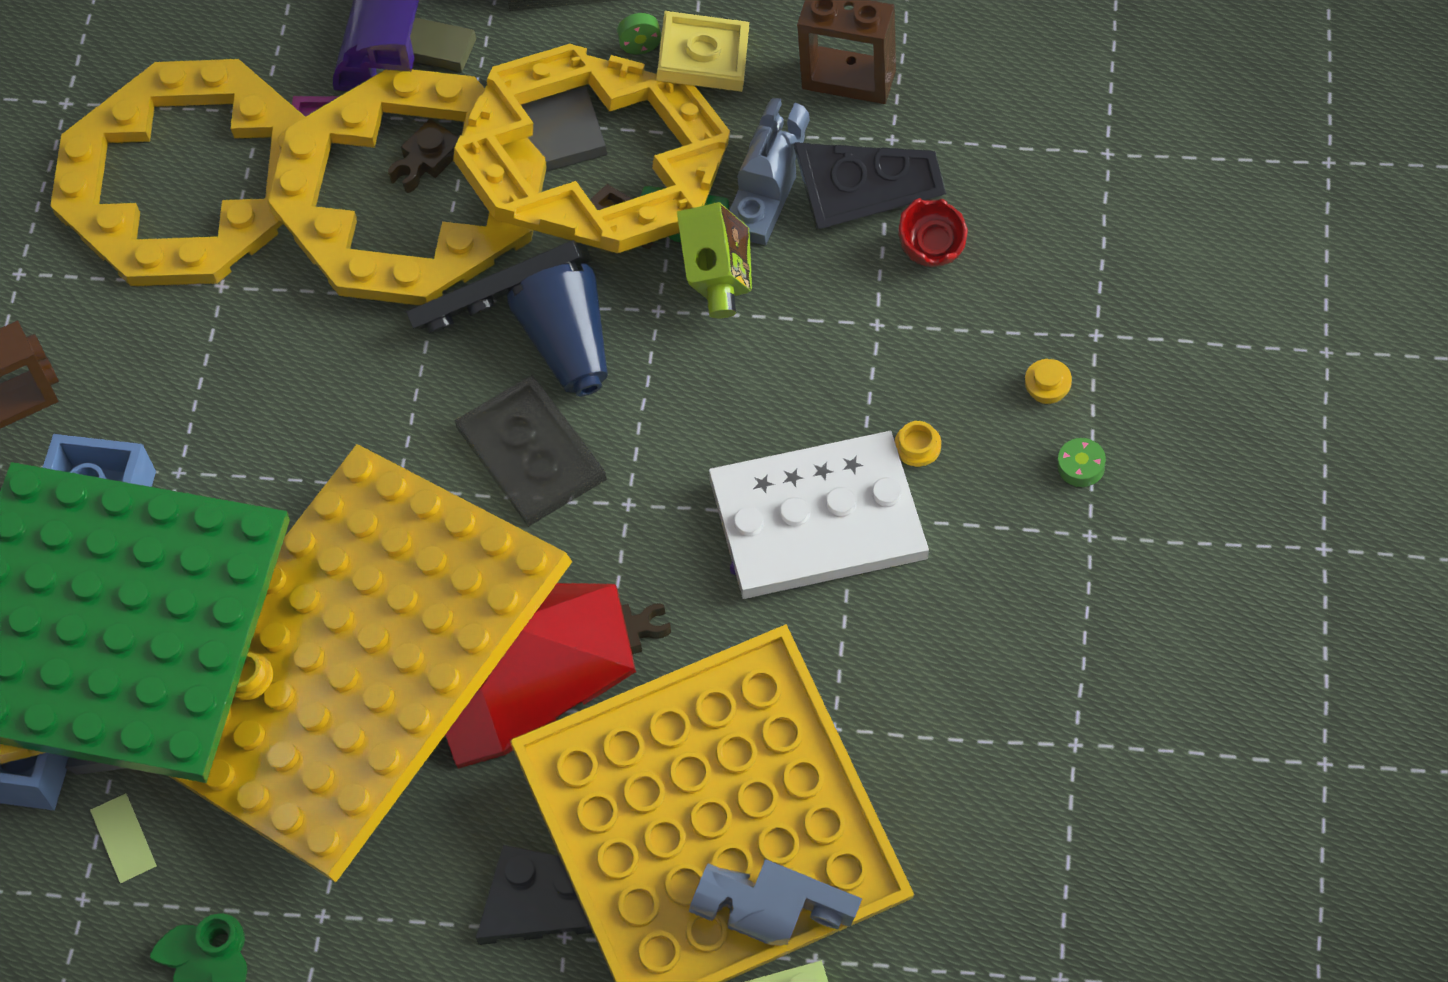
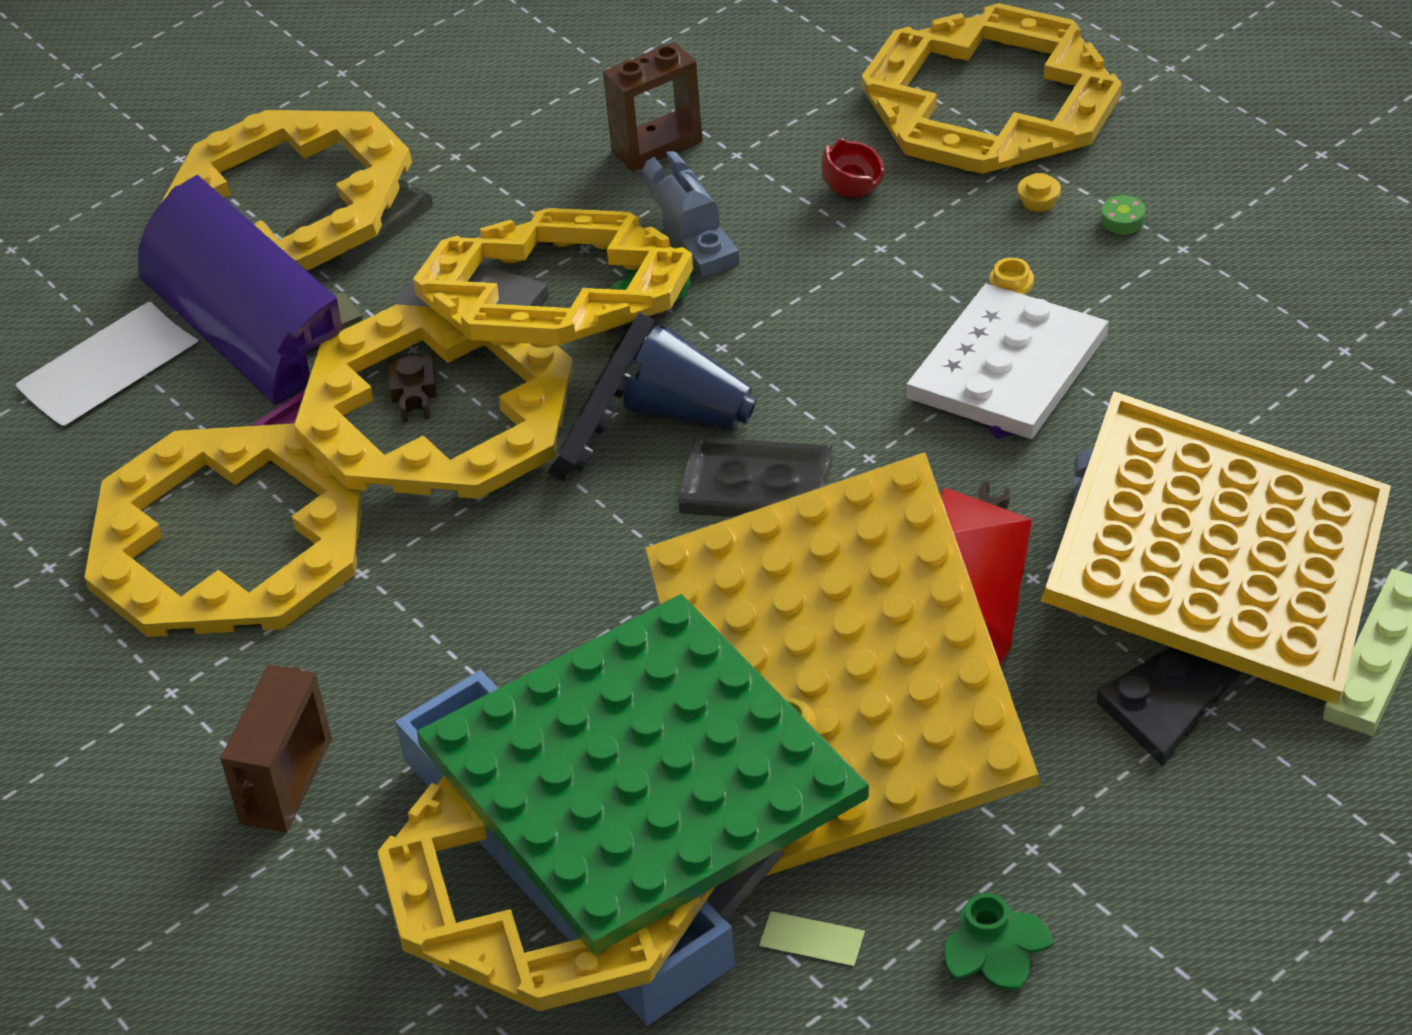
camera: 50 degrees left, 15 degrees down
(639, 33) = (476, 210): bright green tile -> none
(703, 51) = (539, 188): light yellow tile -> none
(716, 256) = (735, 269): lime torso -> none
(773, 903) = (1333, 541): sand blue plate -> none
(864, 181) = (763, 174): black wing -> none
(1106, 319) = (1023, 137): none -> yellow plate

